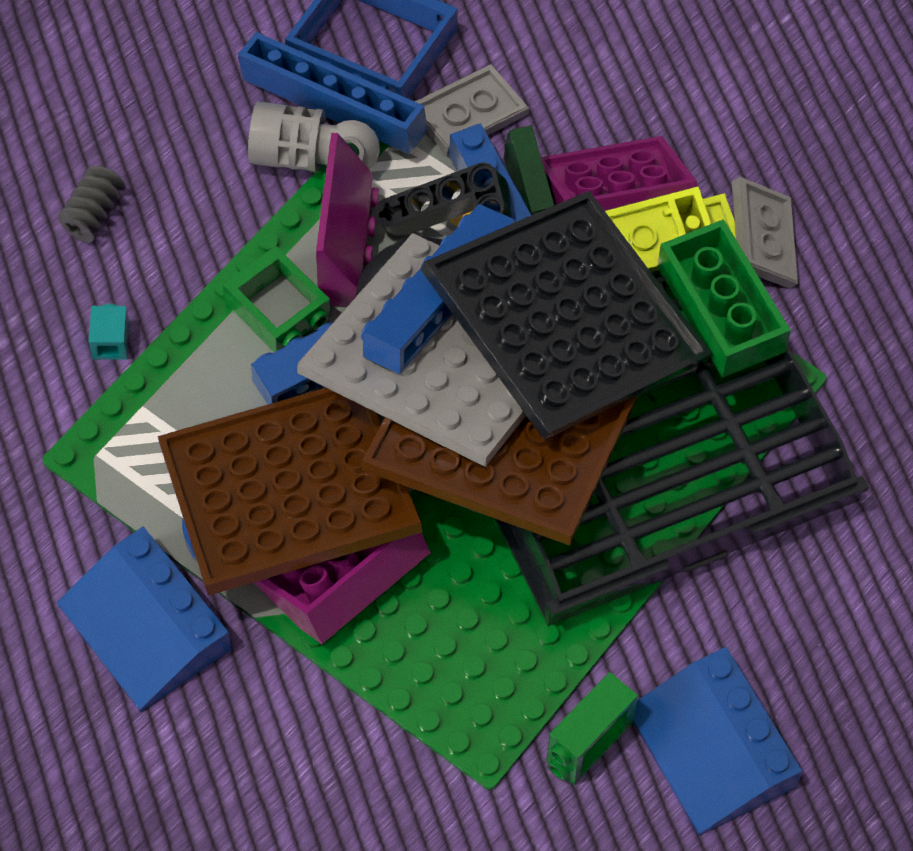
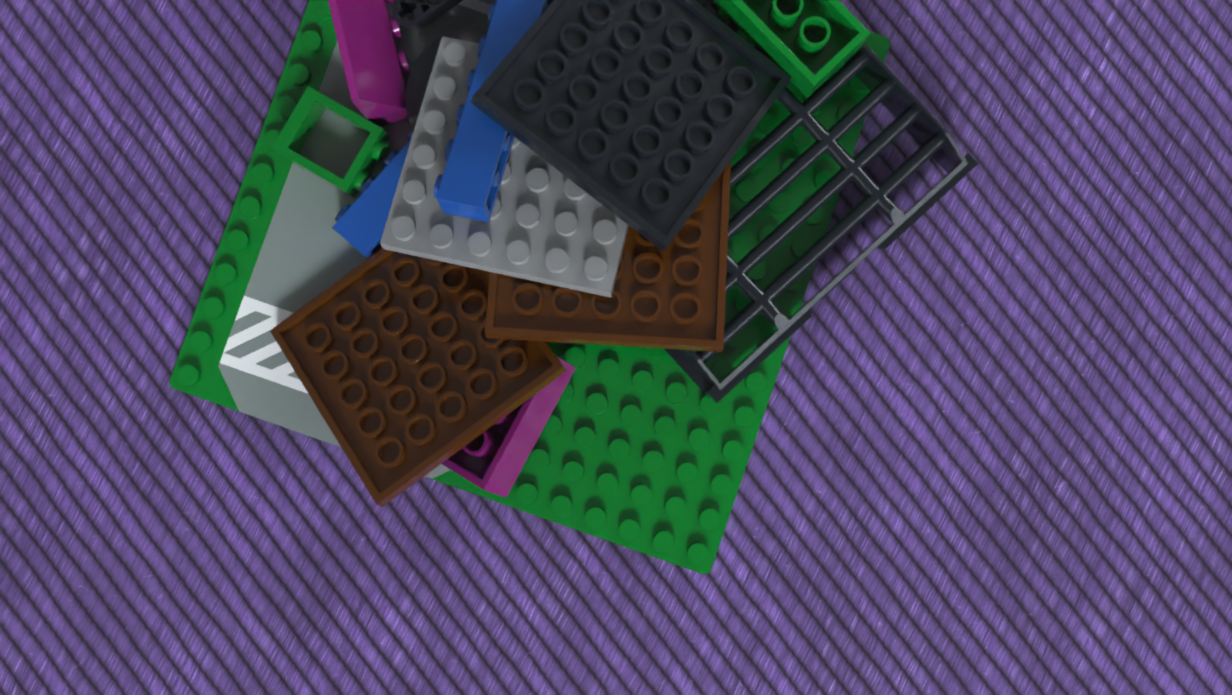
camera: 15 degrees left, 25 degrees up
(91, 202) = (104, 92): dark grey piece -> none
(109, 332) = (179, 229): teal brick -> none
(144, 620) = (328, 521): blue slope -> none
(591, 729) = (786, 500): green window -> none
(715, 742) = (899, 463): blue slope -> none

